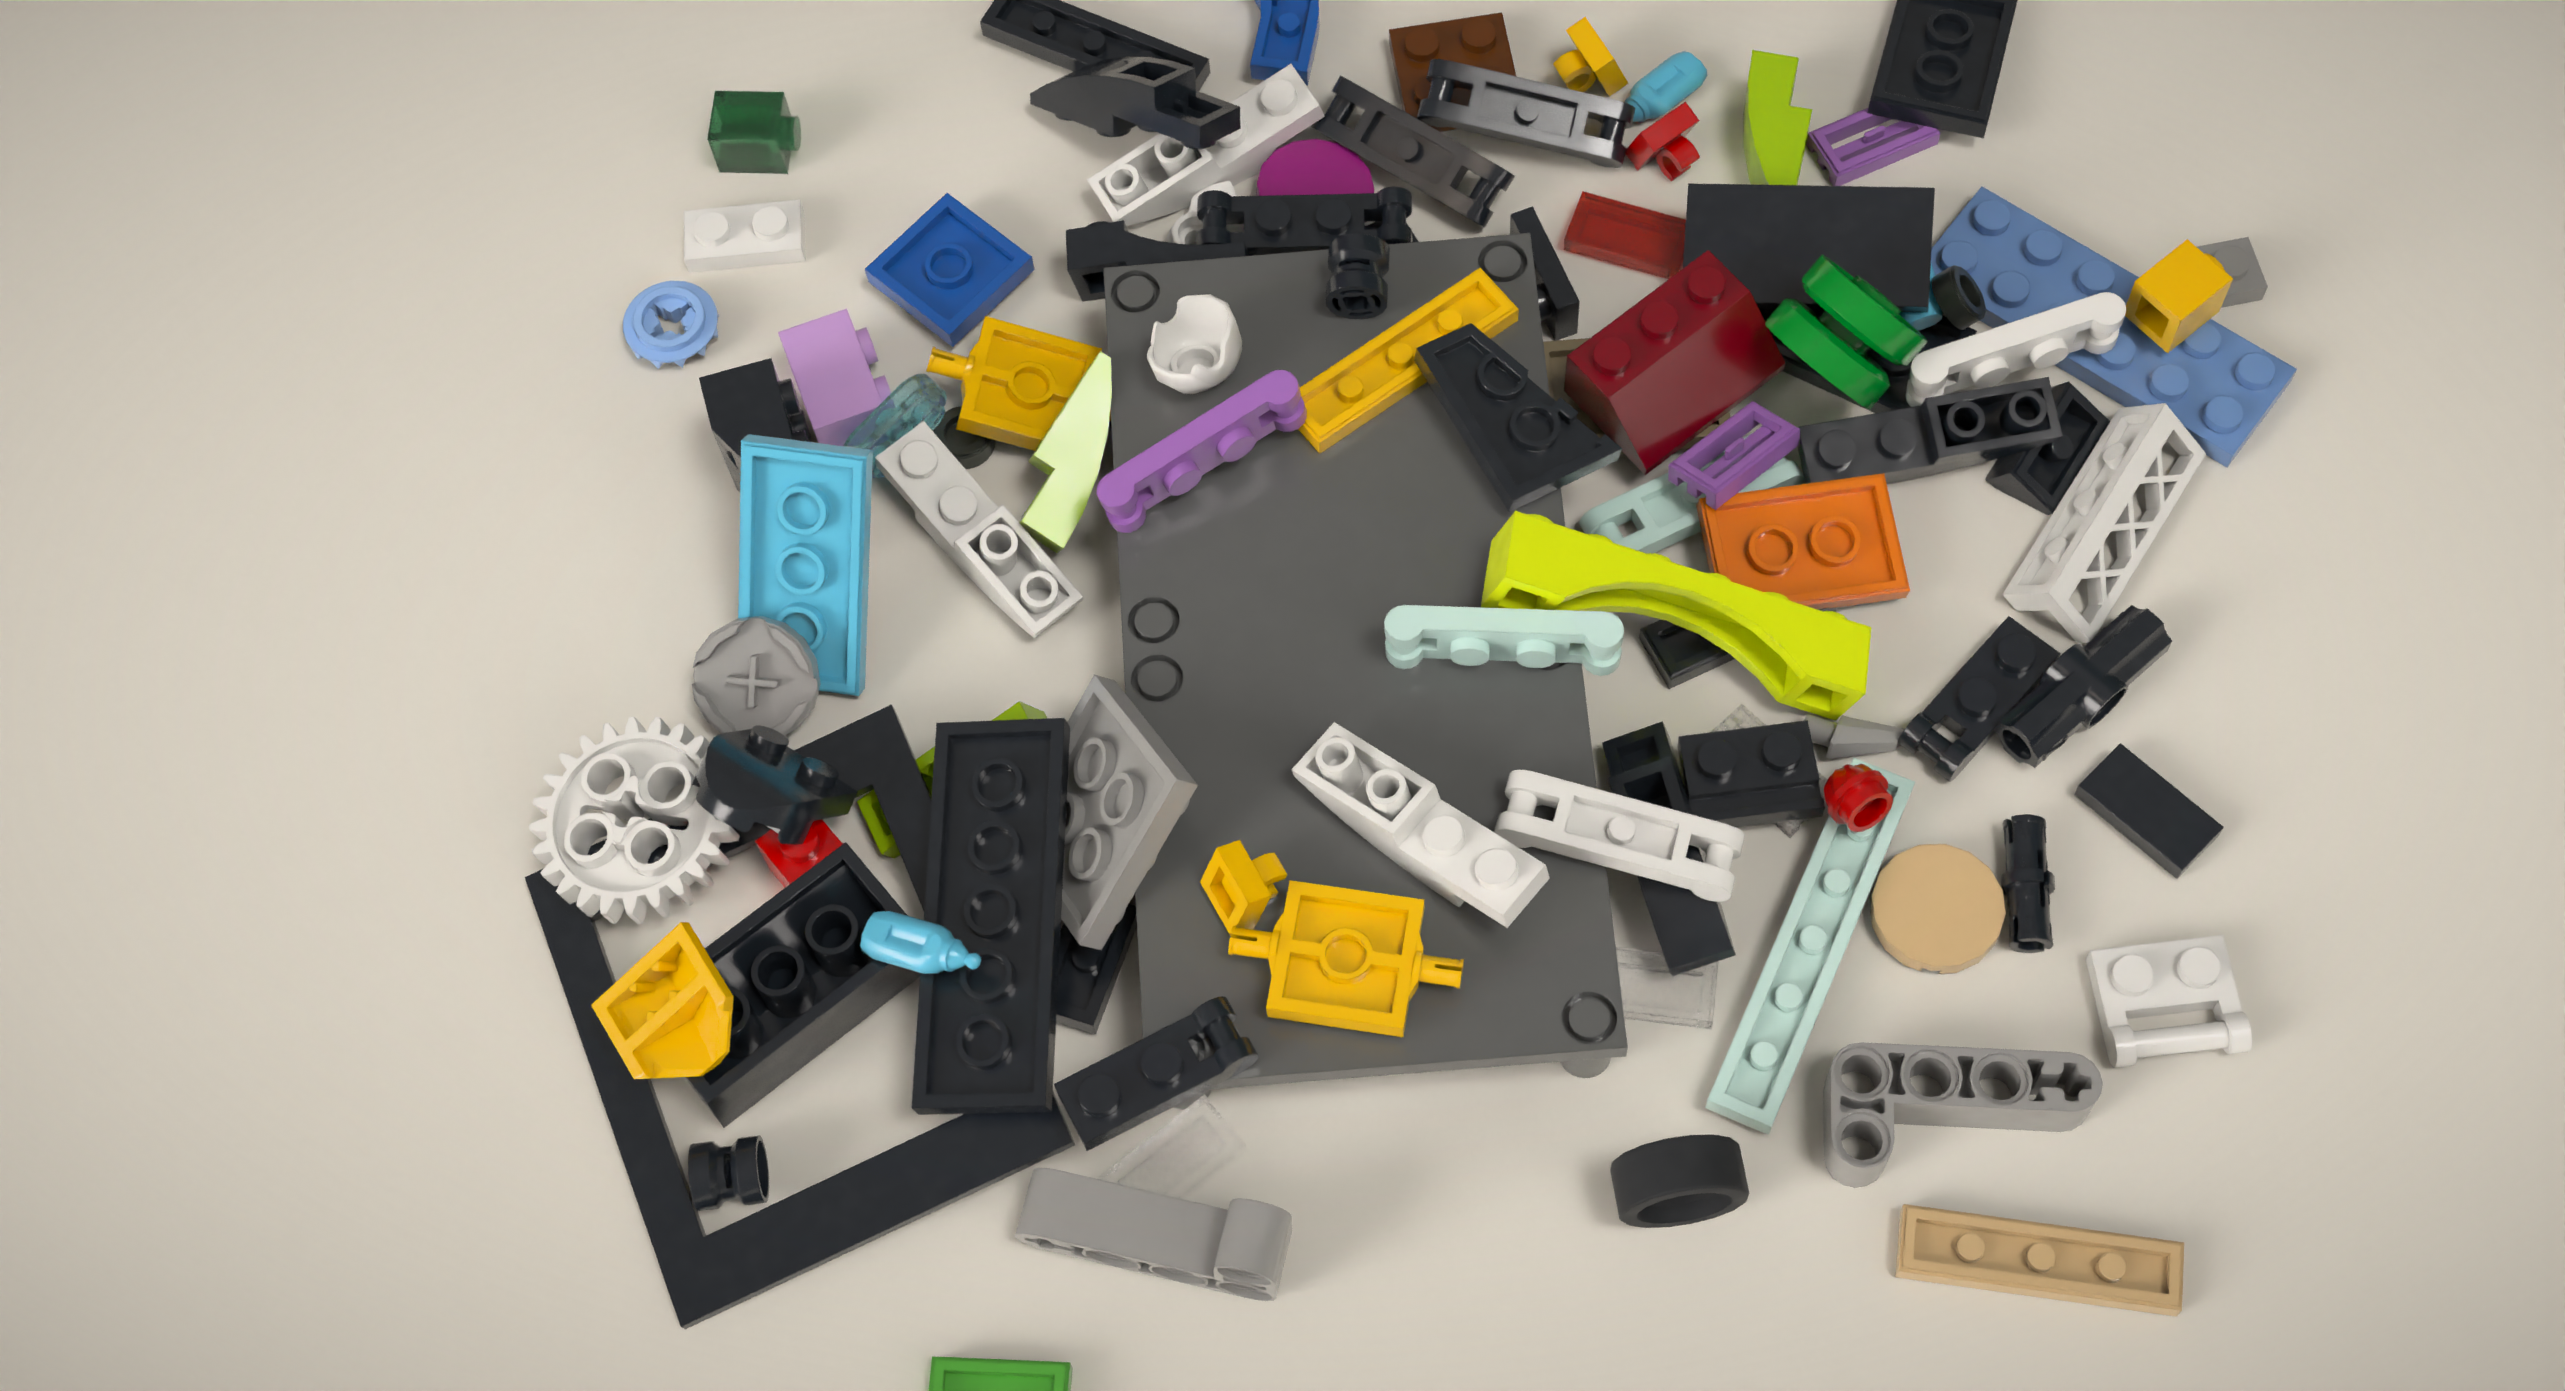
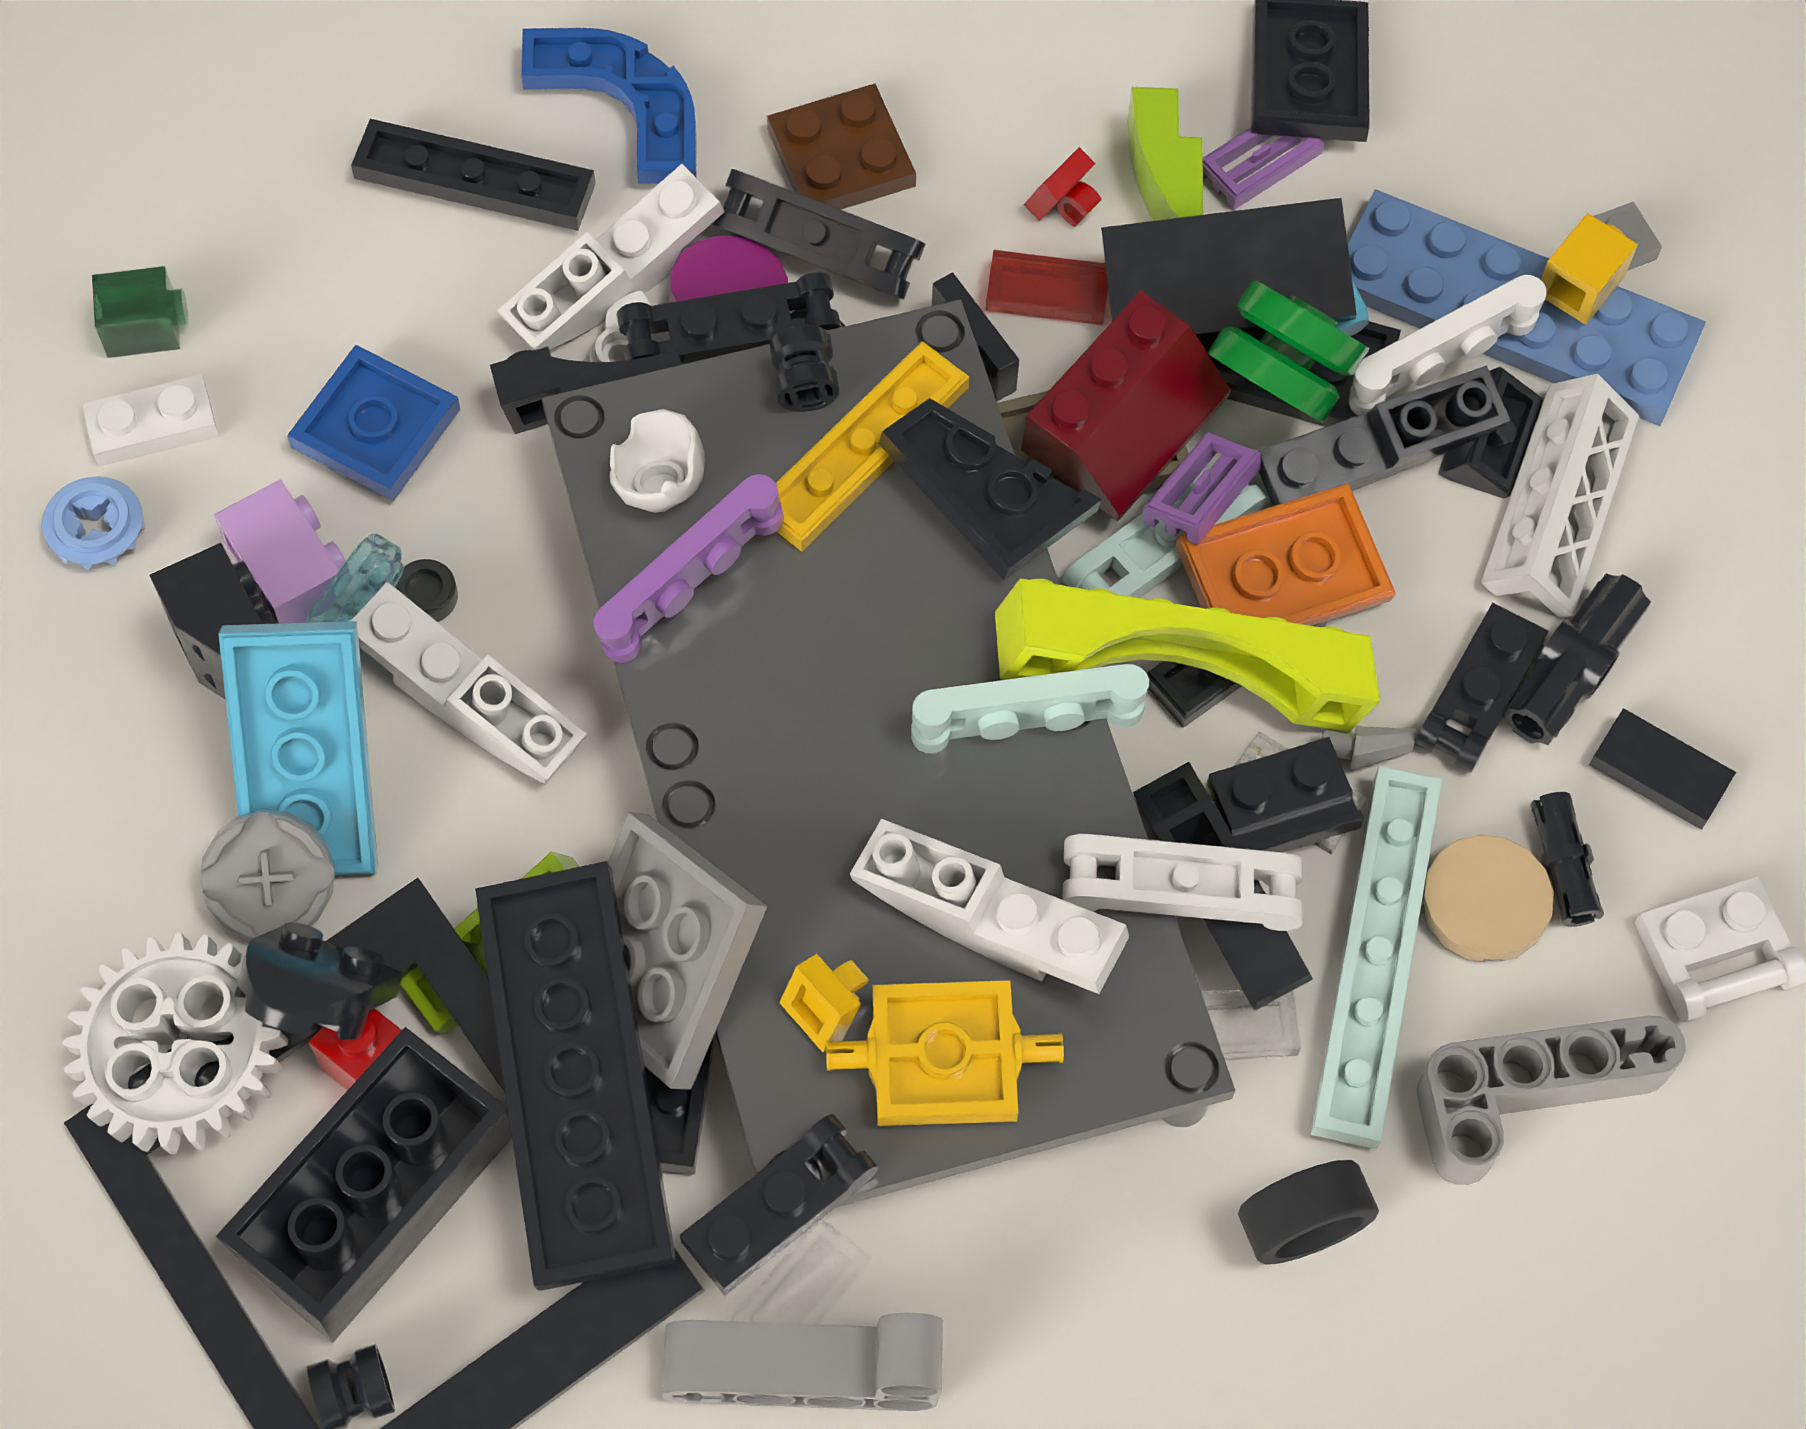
camera: 20 degrees left, 0 degrees up
(669, 1010) = (264, 1234): yellow slope -> none
(914, 944) = (503, 1118): medium azure piece -> none
(1014, 381) = (483, 531): yellow plate -> none
(1071, 458) = (547, 594): slope -> none
(1140, 93) = (531, 213): black slope -> none
(1526, 112) = (923, 179): plate -> none
(1590, 61) = (972, 120): yellow tile -> none
(1666, 86) = (1048, 137): medium azure piece -> none
(1857, 797) = (1395, 803): red plate -> none
(1958, 297) = (1380, 300): pearl dark grey tile -> none
(2040, 1260) = (1657, 1221): tan tile -> none

